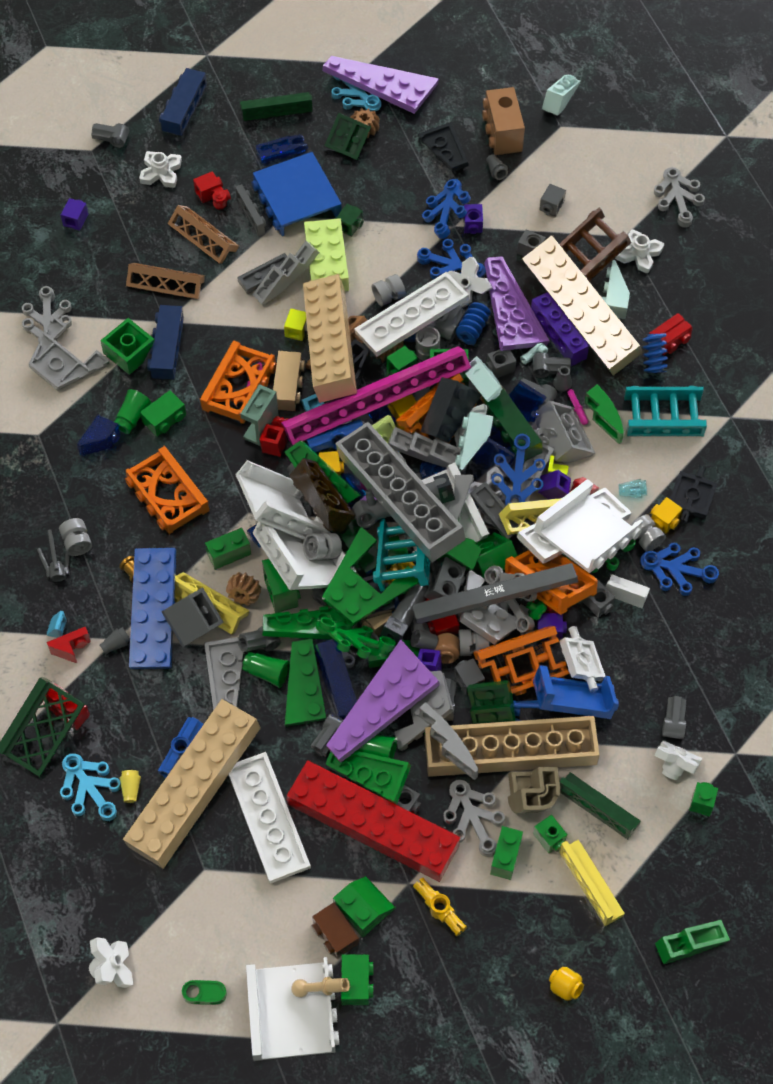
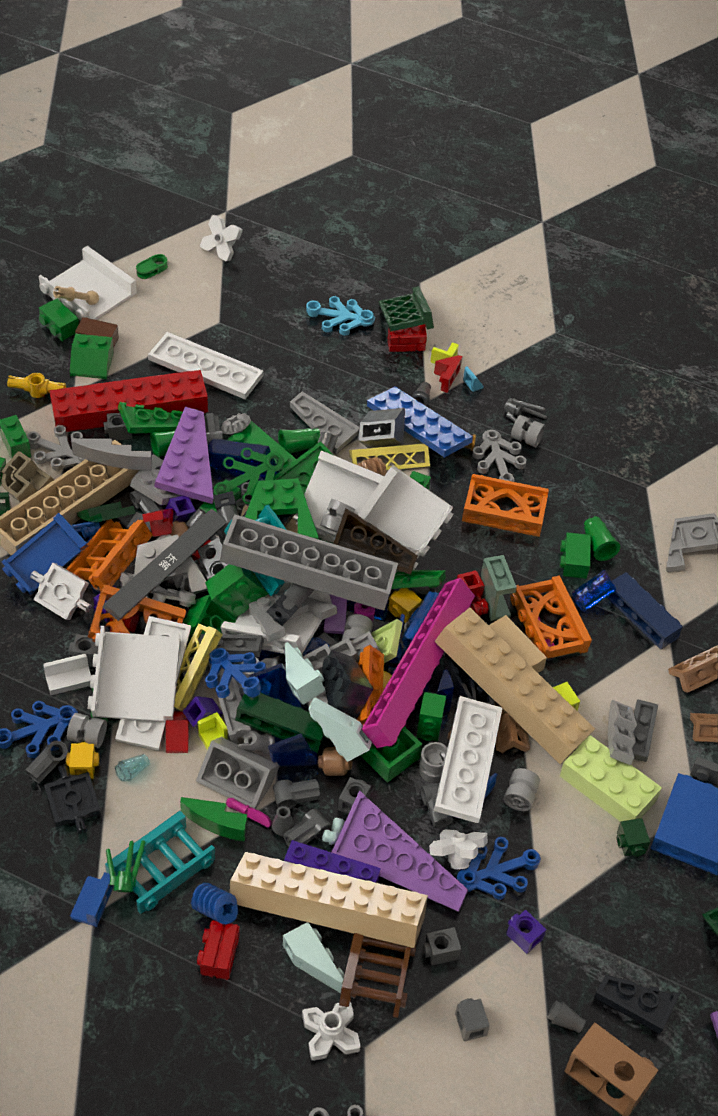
camera: 135 degrees right, 10 degrees down
(51, 666) = (437, 354): none -> neon yellow panel
(99, 436) = (602, 506): clear blue slope -> none
(121, 539) = (493, 439): none -> light grey plant
(127, 345) = (664, 574): green slope -> none
(130, 785) = (315, 328): light yellow cone -> none
(184, 738) = (304, 364): blue piece -> none
(185, 377) = (594, 591): none -> clear blue slope
(192, 783) = (273, 345): tan brick -> none
(304, 717) = (236, 423): none -> light grey gear
(376, 372) = (446, 689): none -> slope
(451, 189) = (578, 947): blue plant -> none
(460, 652) = (160, 521): none -> red slope
(472, 323) = (414, 813): blue piece -> none
(686, 531) = (45, 762): none -> dark grey piece
(703, 403) = (125, 879): none -> green plant
(726, 421) = (92, 900): none -> blue panel

